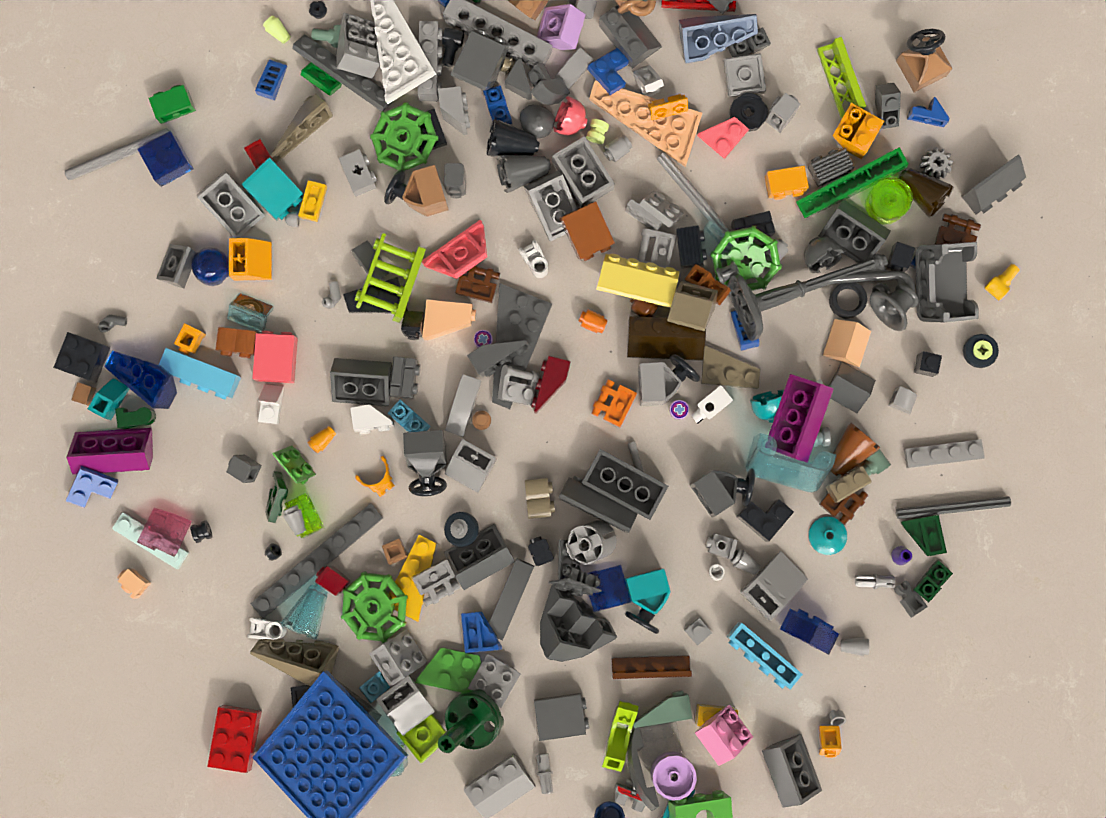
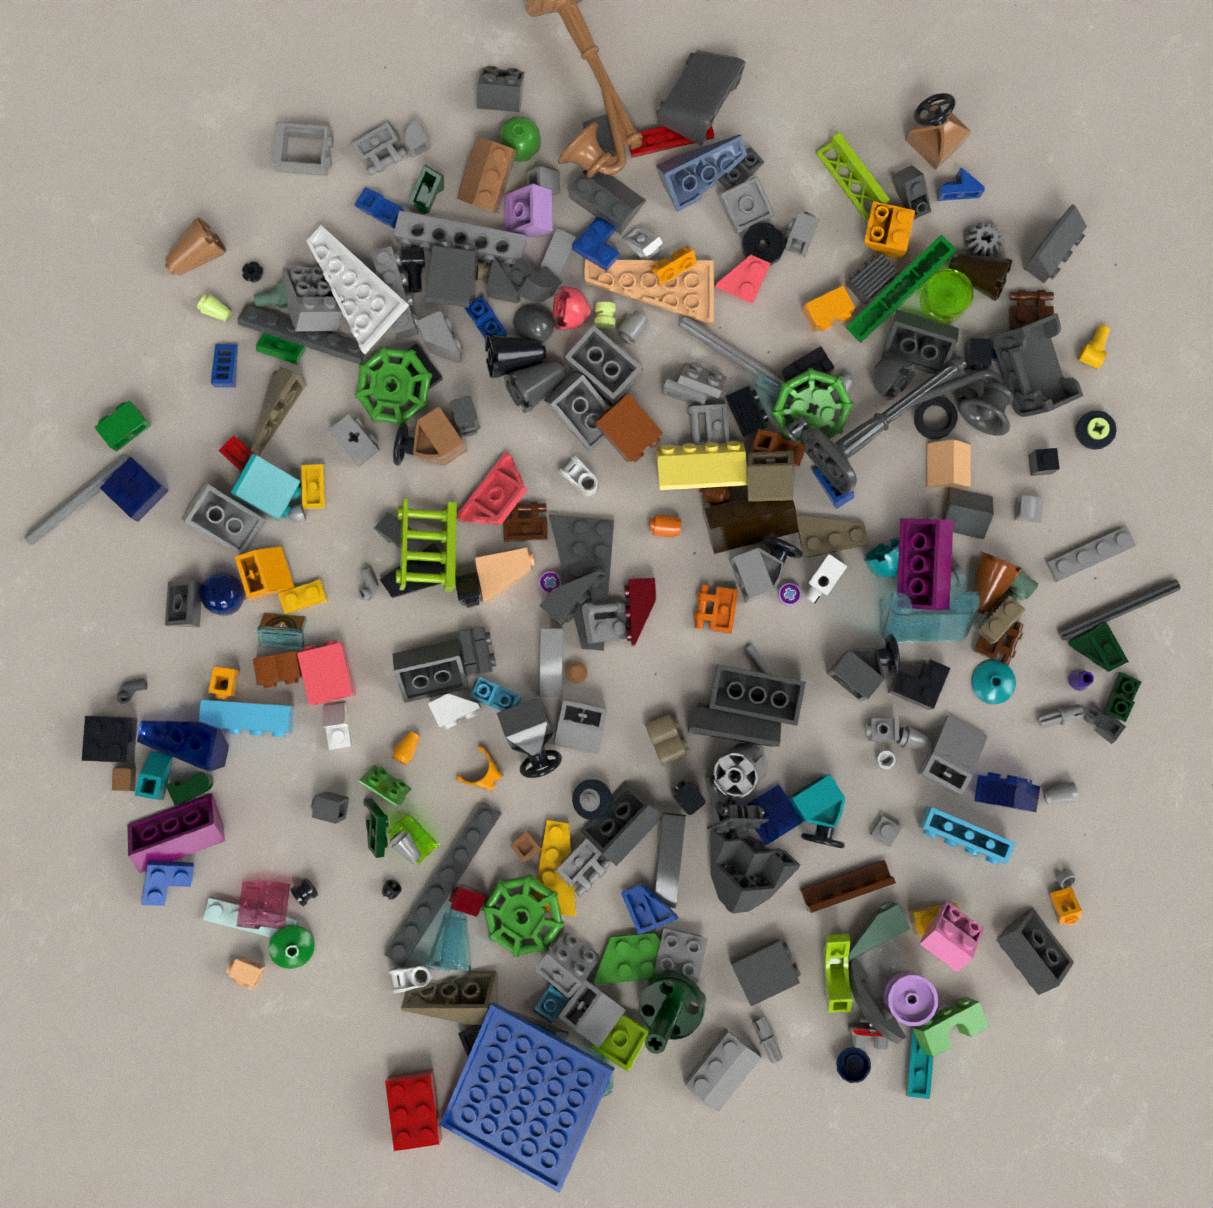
camera: 20 degrees left, 0 degrees up
(176, 565) = (289, 937): none -> green dish
(276, 289) = (303, 597): none -> yellow plate

